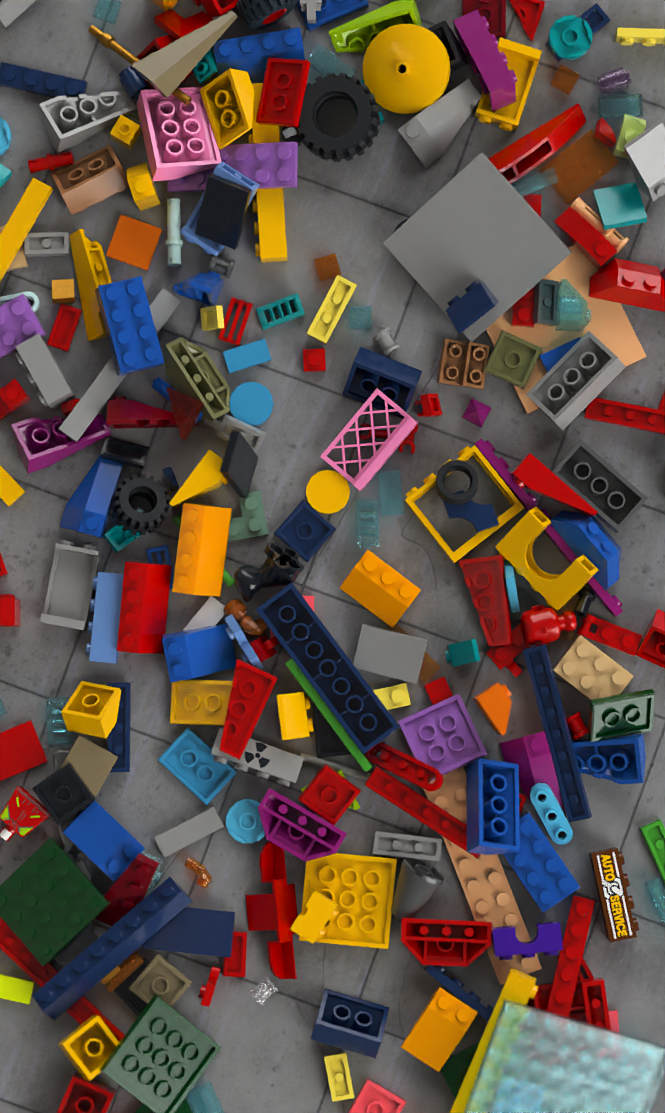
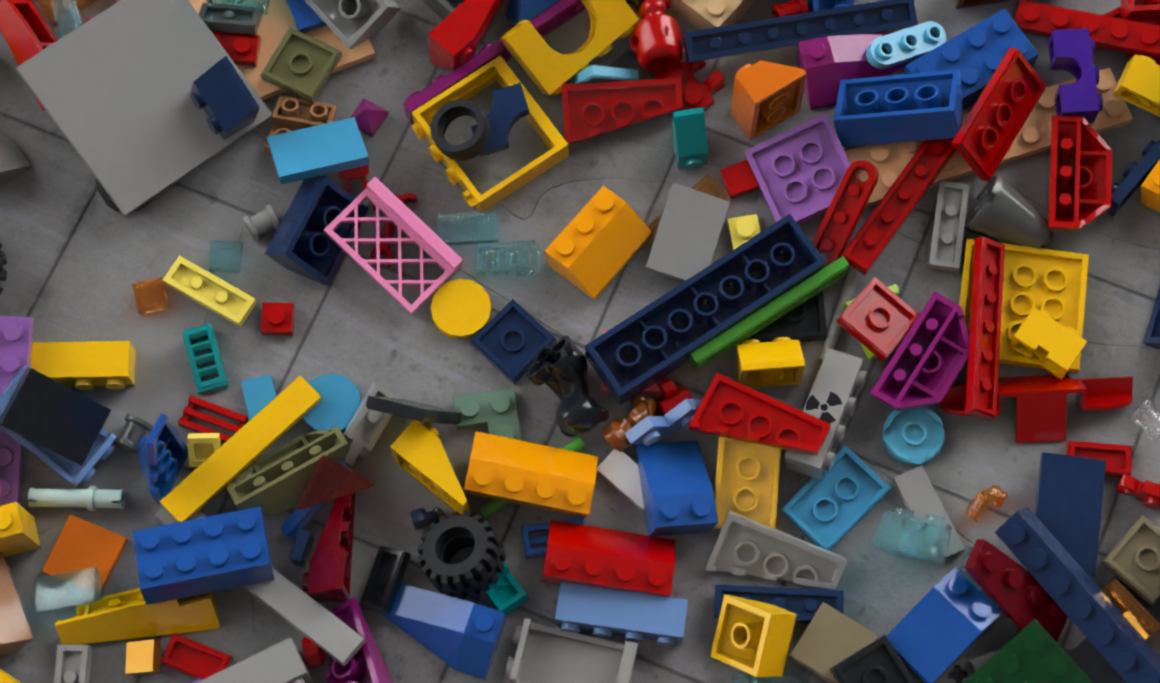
camera: 85 degrees left, 15 degrees down
(106, 234) = (67, 589): none -> clear light blue slope
(144, 392) = (301, 547): none -> dark blue tile
(155, 716) = (765, 552): none -> light grey wing
(165, 819) = (913, 536): none -> clear light blue slope
(211, 344) = (241, 450): none -> yellow tile
(323, 871) = (985, 329): none -> red tile
(439, 378) = (318, 150): none -> dark azure tile
(489, 882) = (999, 114): none -> red tile

